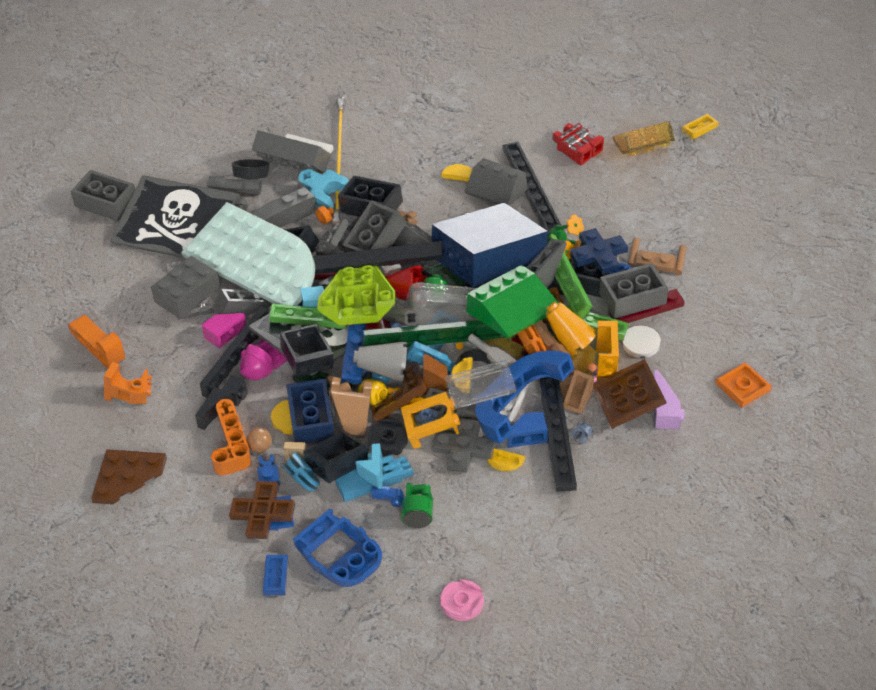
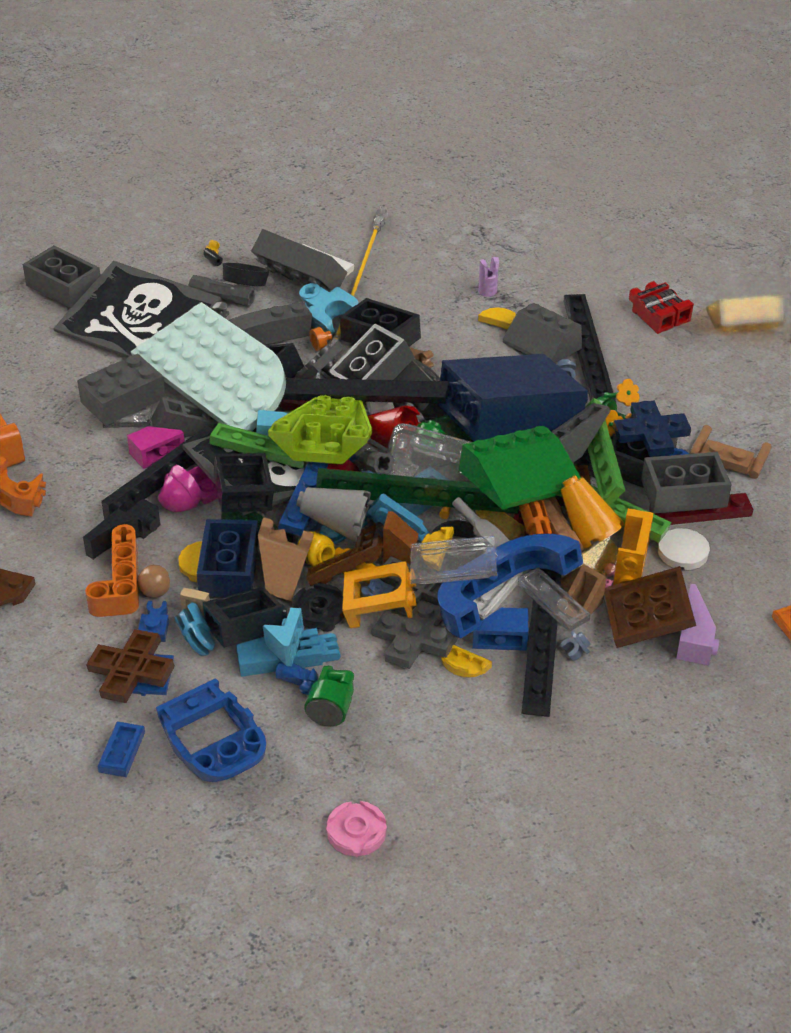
camera: 10 degrees right, 5 degrees down
(215, 152) = (211, 253): none -> black arm
(441, 140) = (488, 277): none -> lavender hinge
(521, 208) = (568, 367): none -> sand blue plate
(558, 400) = (553, 599): none -> clear tile

